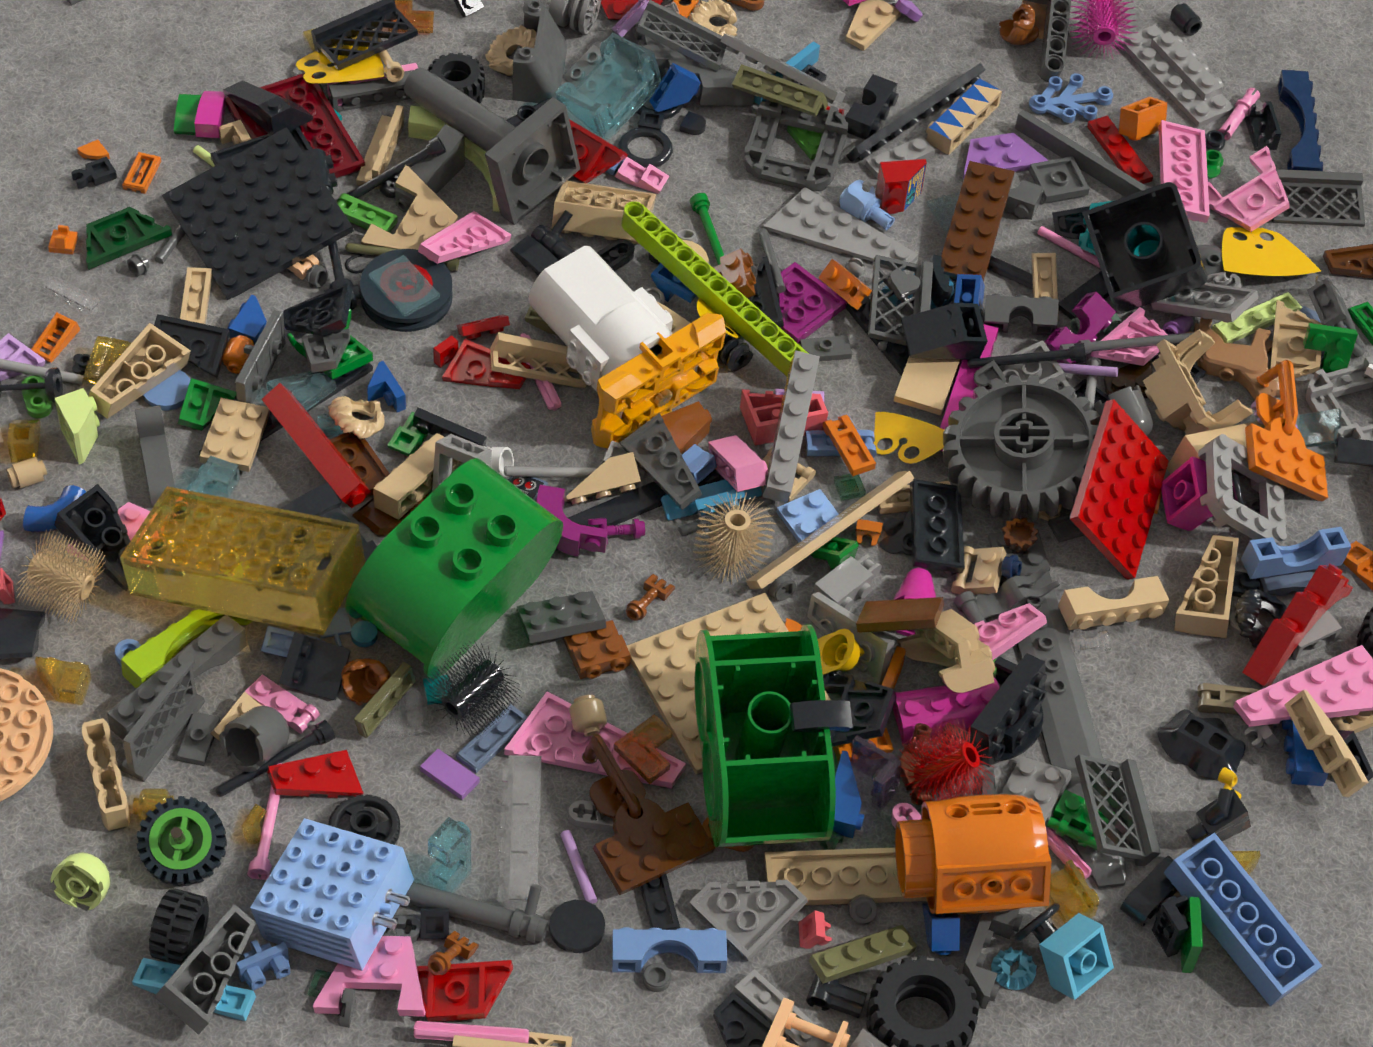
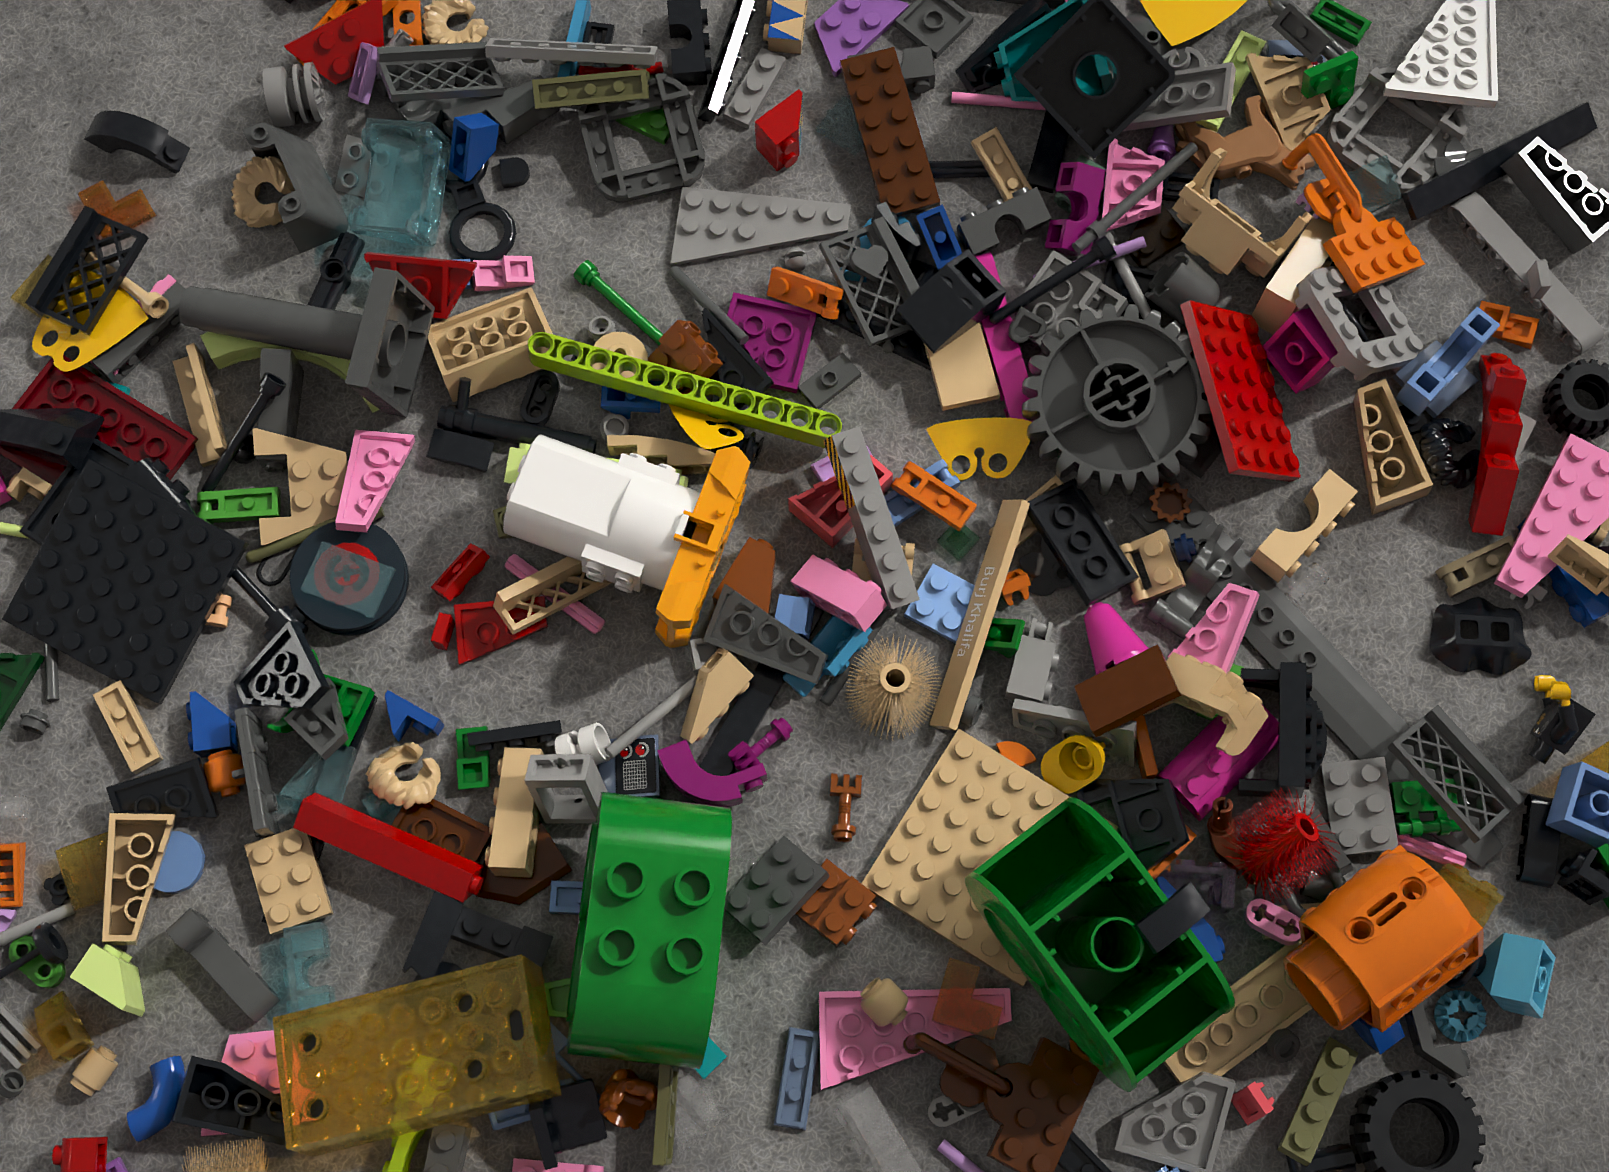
camera: 25 degrees left, 20 degrees up
(201, 404) = (226, 859): green wing -> none
(316, 276) = (240, 617): dark grey plate -> none
(450, 774) = (781, 1150): medium lavender tile -> none
(462, 73) = (224, 250): black tyre -> none
(473, 688) = (753, 1051): black piece -> none
(864, 205) = (759, 176): light blue piece -> none

